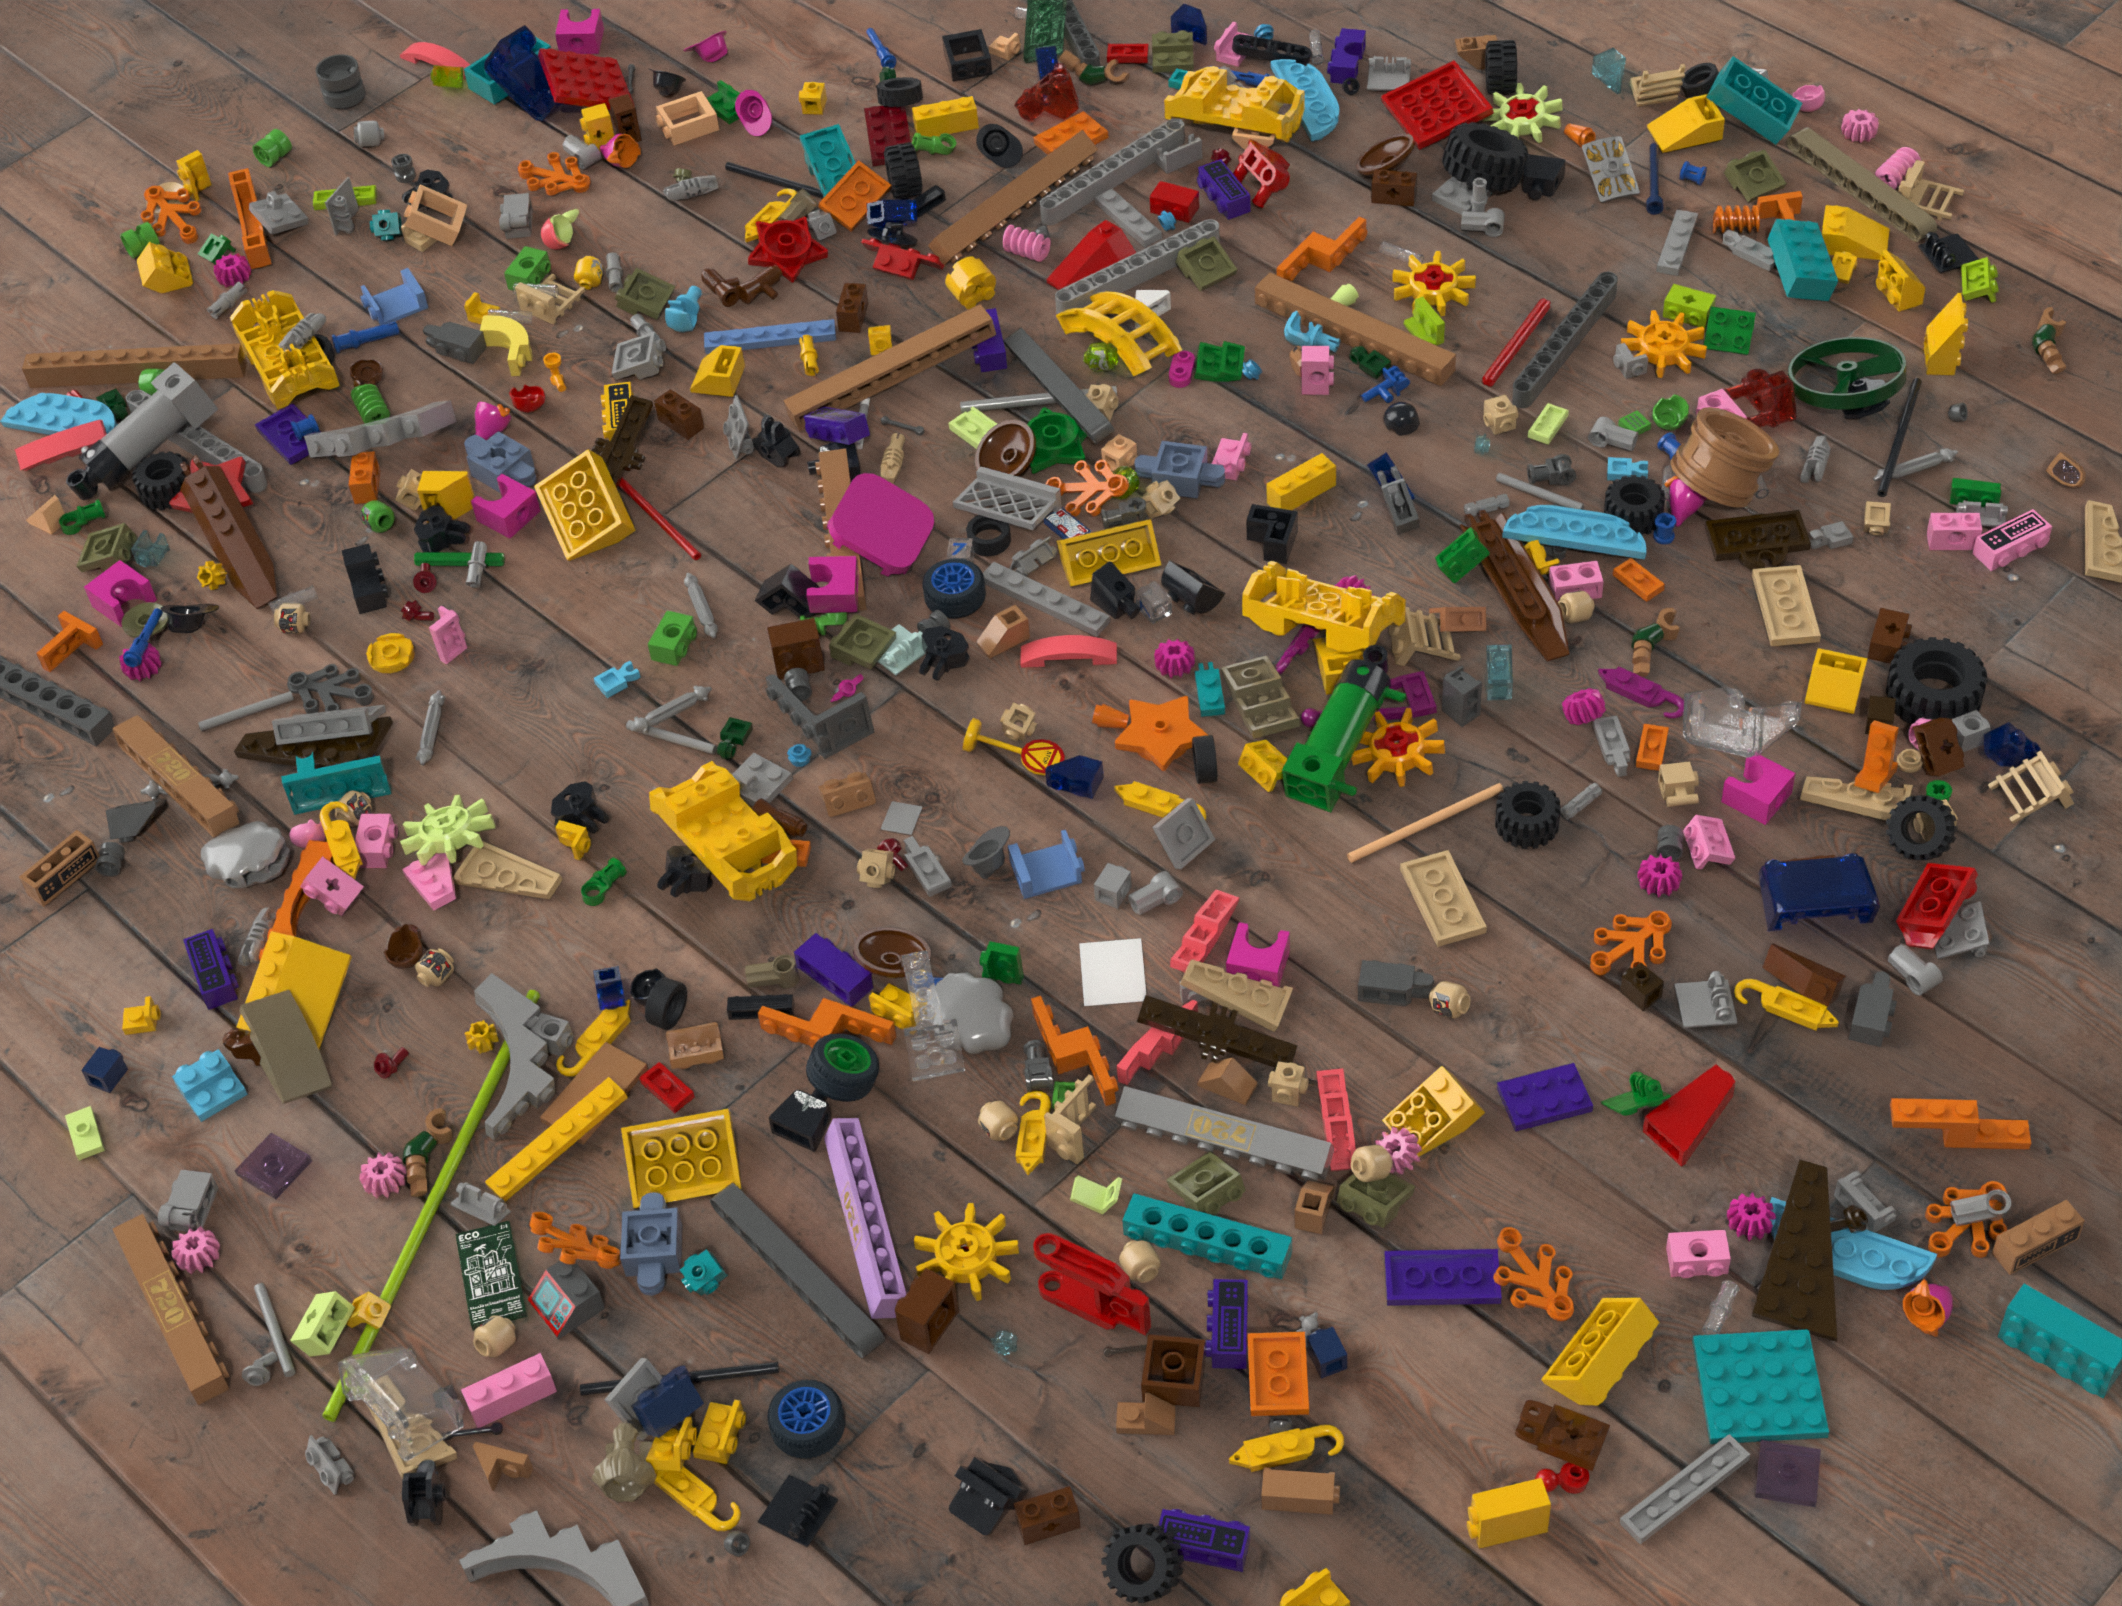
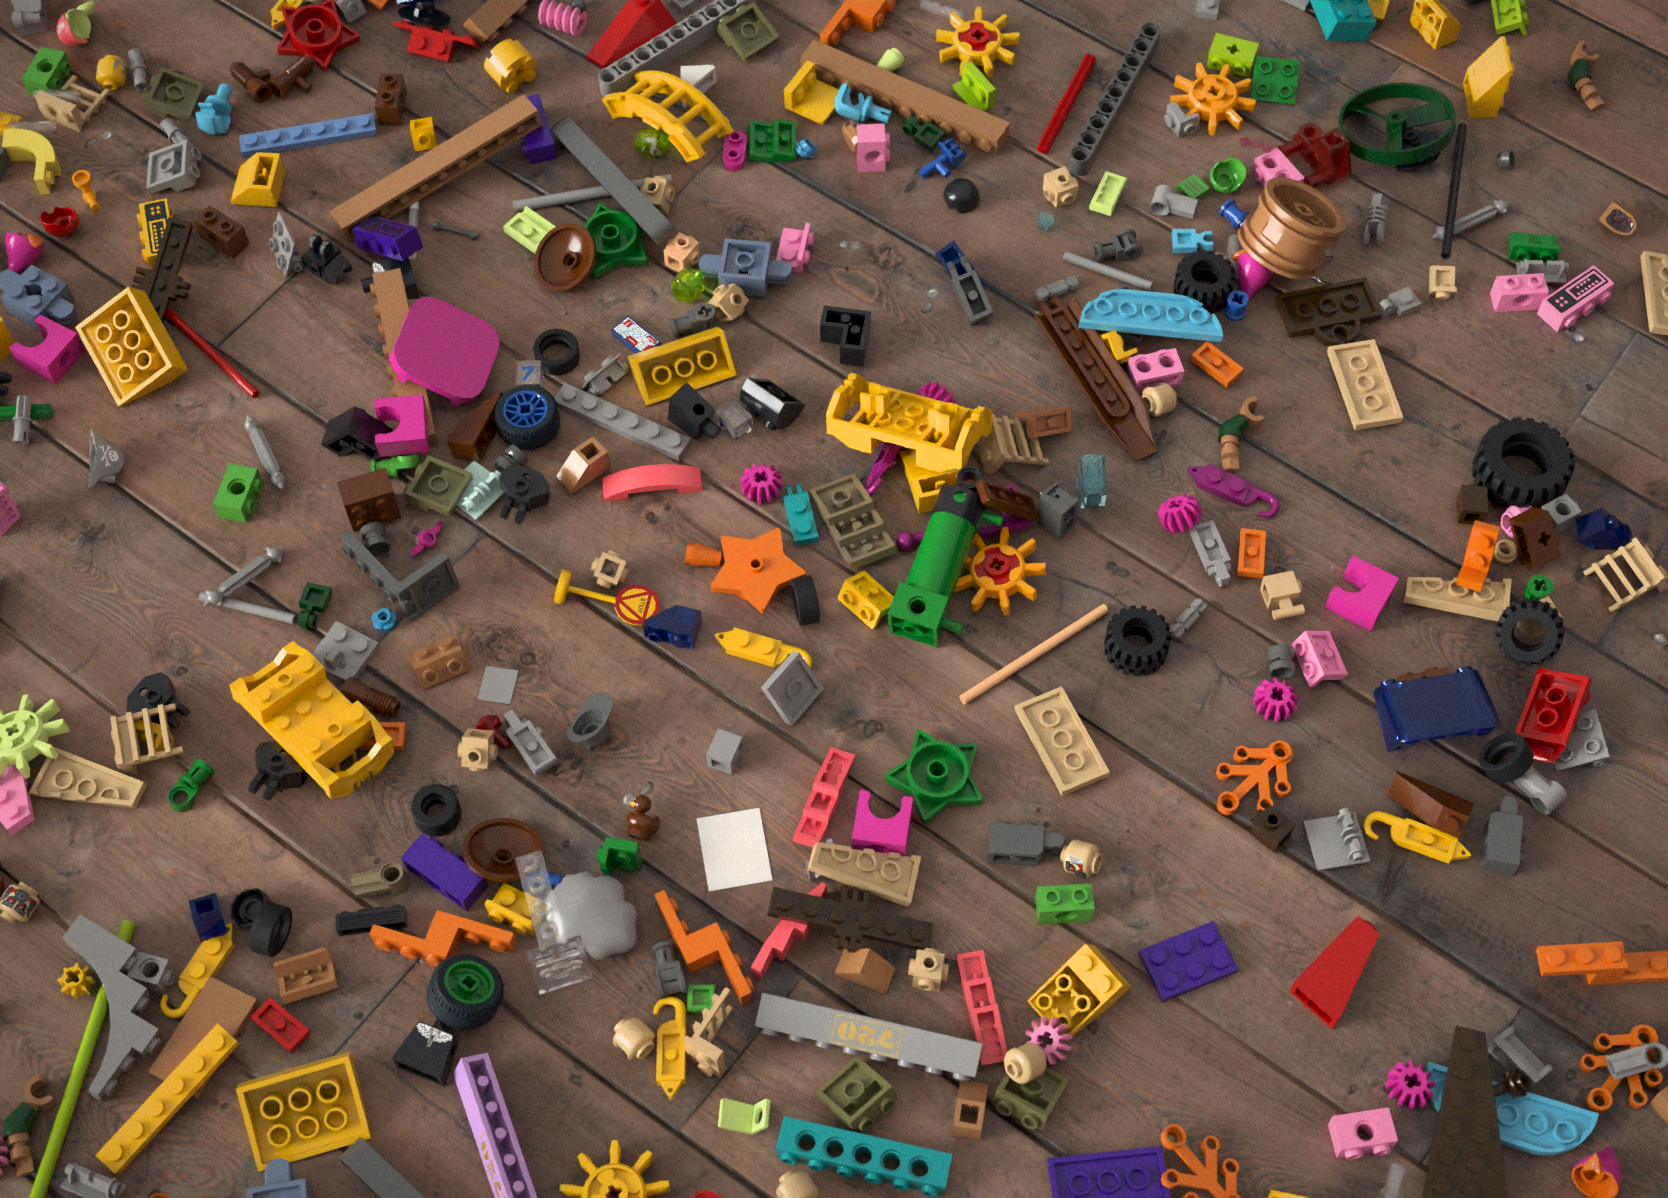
camera: 10 degrees left, 10 degrees up
(548, 840) = (126, 740): none -> tan plate
(550, 602) = (105, 460): none -> light grey hat
(615, 680) = (181, 546): medium azure plate -> none
(808, 355) = (350, 155): yellow pin -> none
(828, 905) = (430, 796): none -> black tyre
(892, 458) = (449, 271): tan hinge -> none
(902, 598) = (475, 431): none -> reddish brown slope
(1009, 489) = (577, 300): light grey fence -> none
(1025, 939) = (640, 824): none -> reddish brown animal
(1046, 868) = (654, 733): medium blue panel -> none
(1114, 487) = (655, 294): orange plant -> none
(1160, 890) = (775, 753): light grey piece -> none
(1259, 323) = (810, 96): none -> yellow bracket
(1302, 483) = (869, 276): yellow brick -> none
(1317, 919) = (931, 792): none -> green plate
(1411, 680) = (1007, 500): none -> reddish brown tile
(1428, 1036) = (1064, 904): none -> bright green brick
(1462, 555) = (1039, 349): green bracket -> none
(1644, 1092) = (1282, 959): green hinge -> none
(1710, 388) = (1266, 148): none -> clear pink hinge
(1720, 723) = (1319, 526): clear windscreen -> none
(1835, 680) = (1424, 468): yellow slope -> none
(1883, 938) = (1512, 768): none -> black tyre
(1889, 635) = (1469, 413): reddish brown brick -> none

